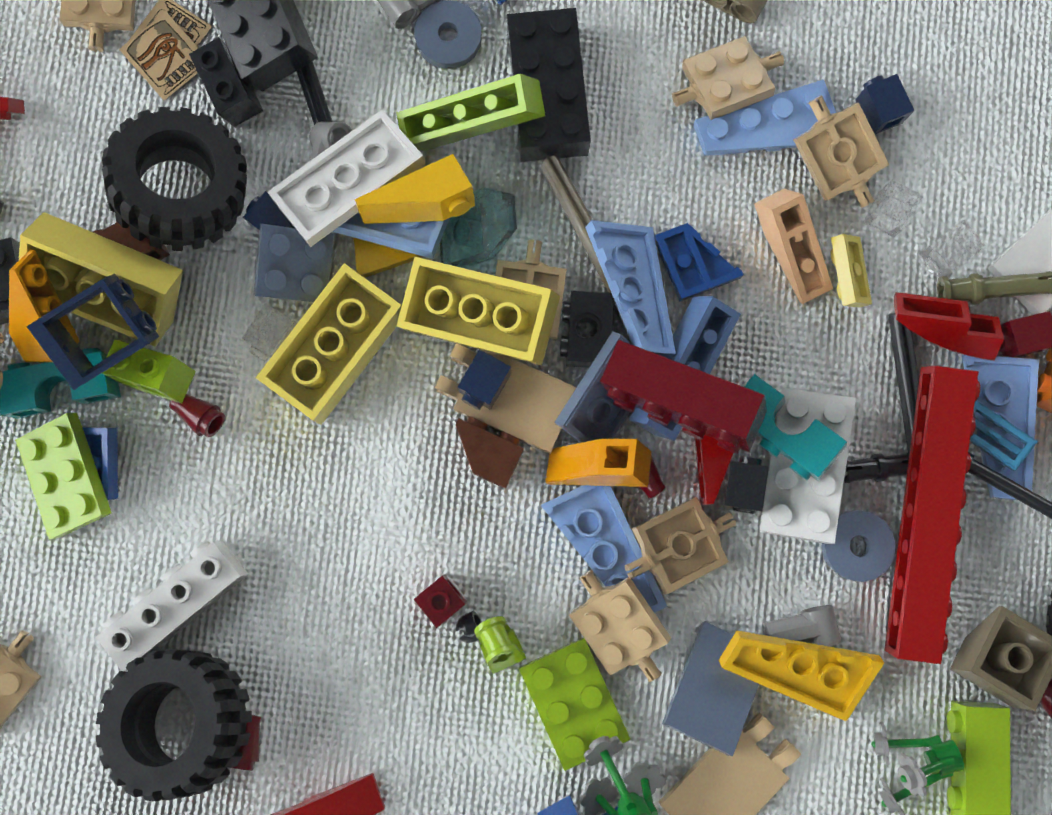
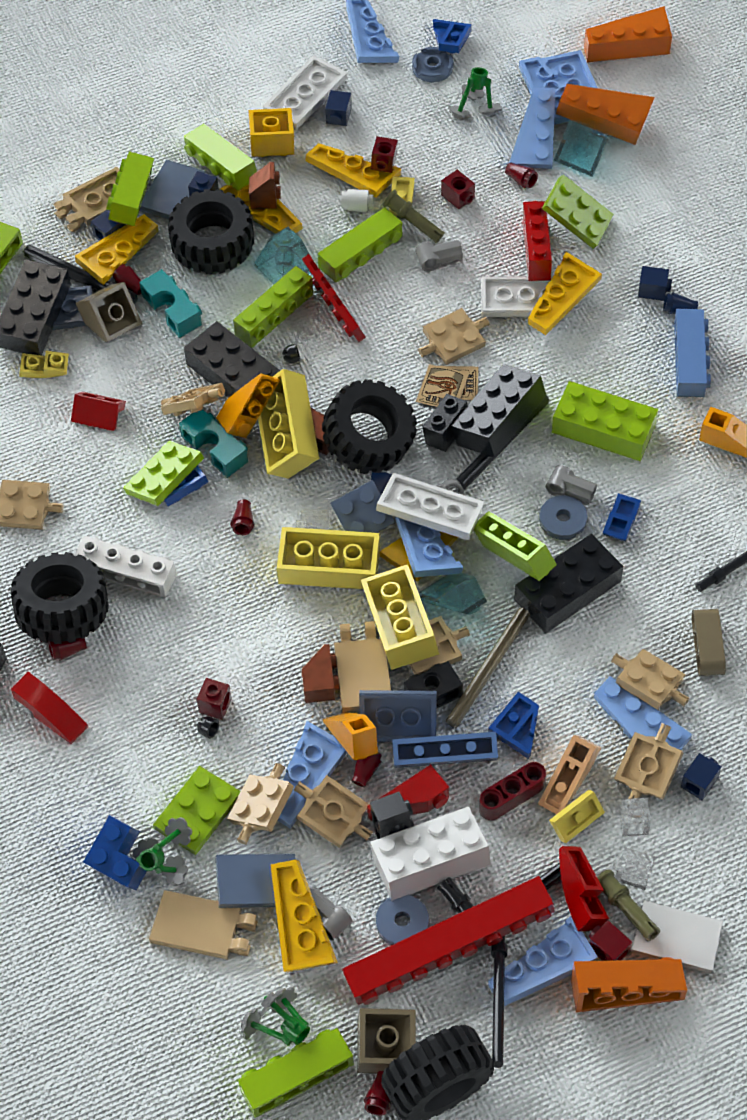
camera: 65 degrees right, 25 degrees down
(66, 352) = (236, 422): dark blue window -> none
(151, 373) = (250, 477): lime brick -> none
(421, 196) = (447, 548): yellow slope -> none
(484, 381) = (360, 644): dark blue brick -> none
(499, 644) = (207, 741): lime piece -> none
(635, 280) = (479, 692): light blue wing -> none
(684, 396) = (415, 735): dark red brick -> none
(785, 308) = (517, 780): none -> dark red beam
(809, 451) = (440, 794): teal arch -> none
(1020, 453) = (526, 974): dark azure tile -> none

